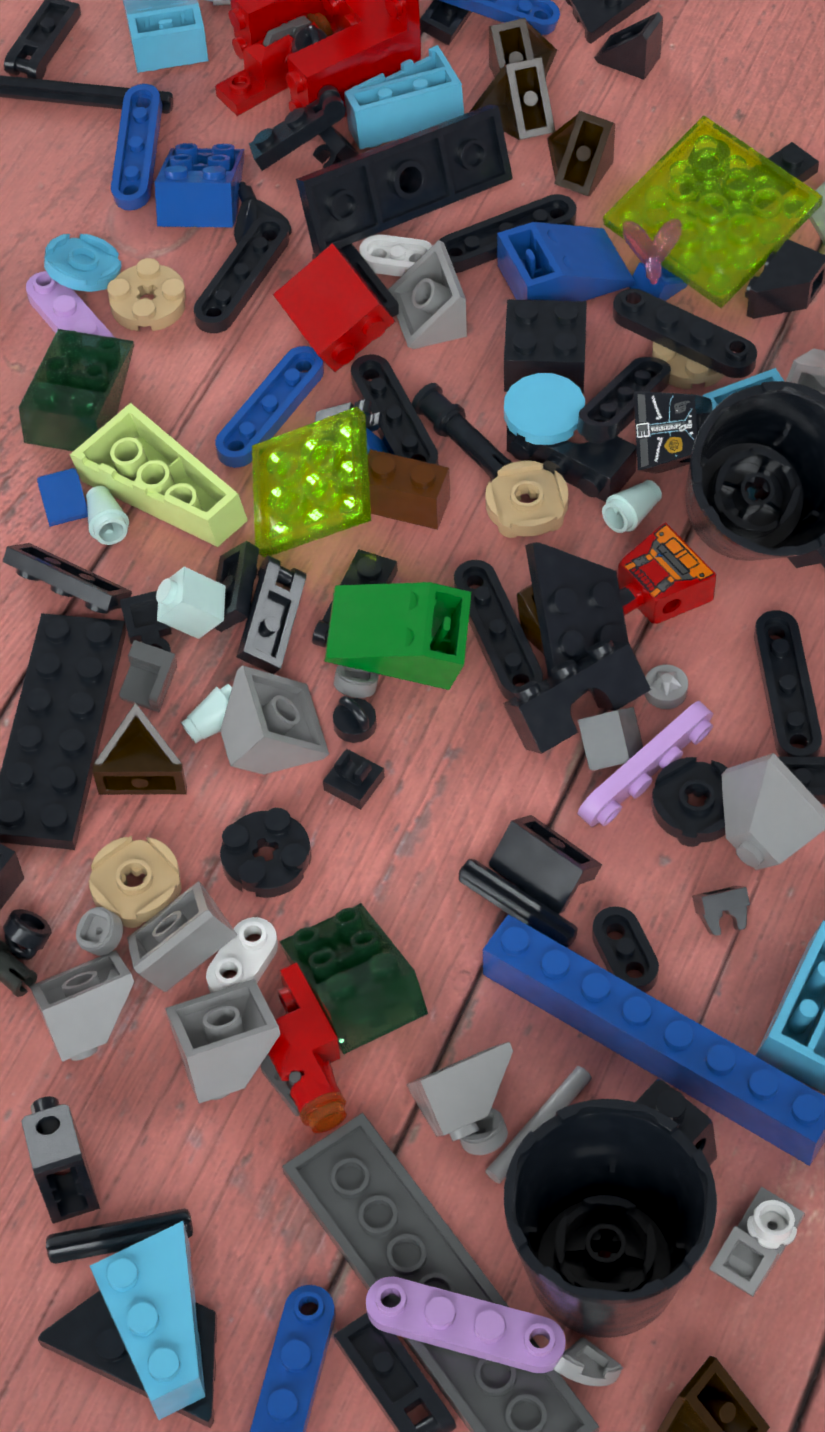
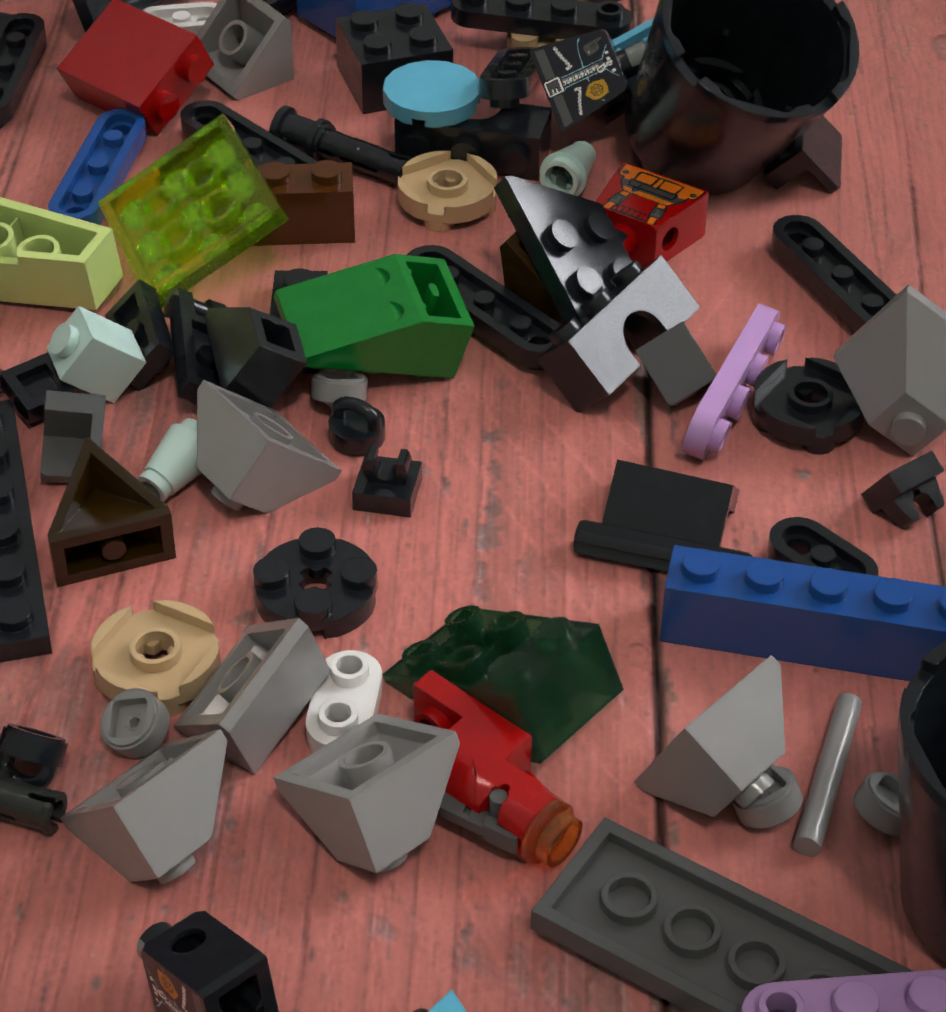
camera: 25 degrees left, 15 degrees down
(297, 637) = (254, 352): none -> black slope
(667, 686) = (712, 317): light grey tile -> none

